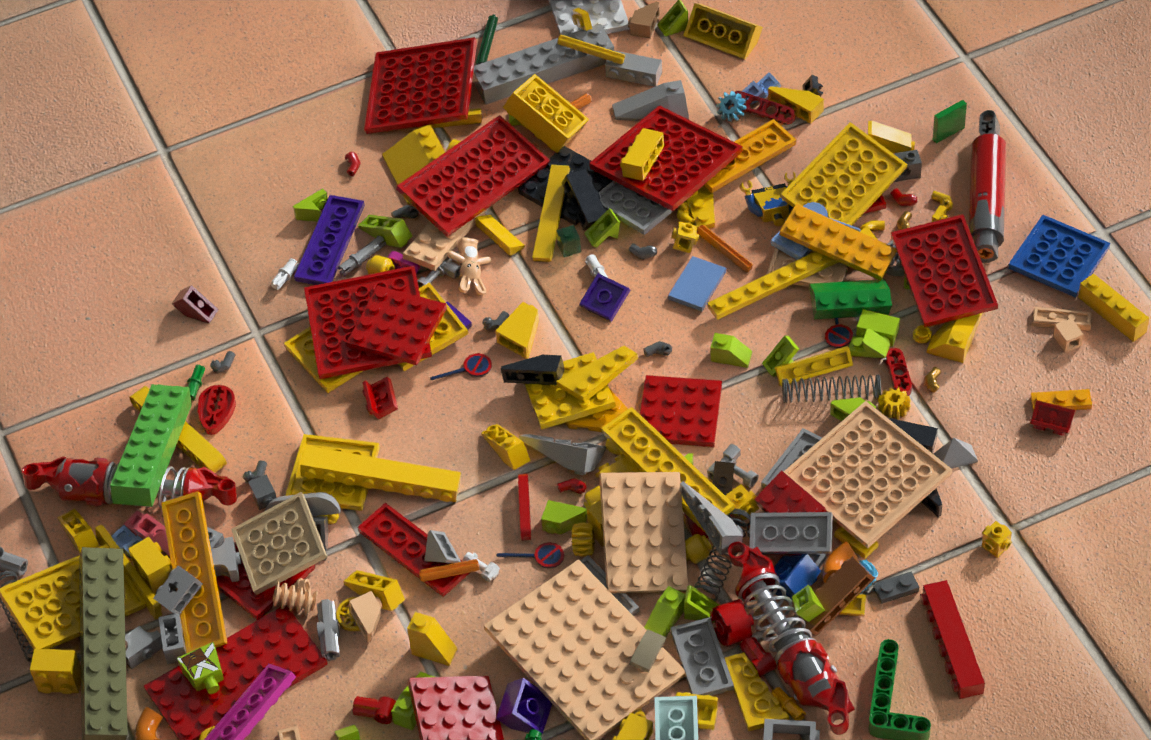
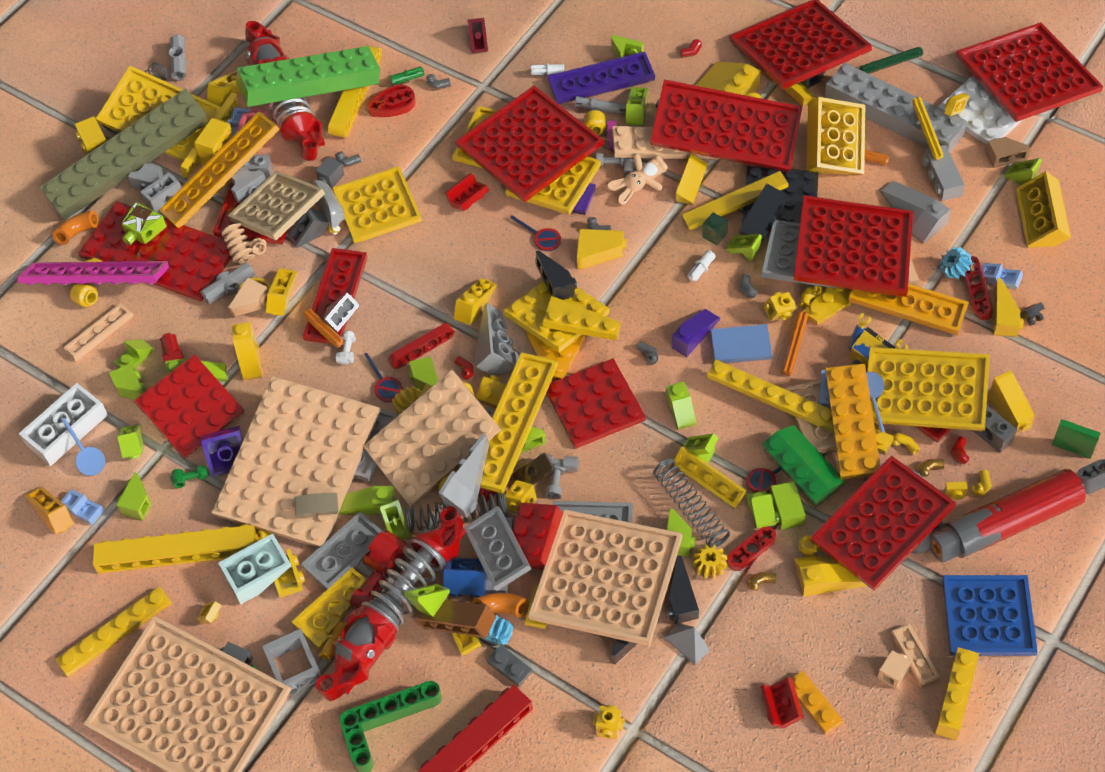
camera: 60 degrees right, 5 degrees up
(177, 600) = (194, 168): light grey brick -> none
(380, 474) = (386, 233): yellow brick -> none
(396, 325) = (533, 161): red plate -> none
(604, 297) = (674, 285): dark purple tile -> none
(642, 154) = (835, 224): yellow brick -> none
(662, 308) = (693, 331): none -> dark purple slope

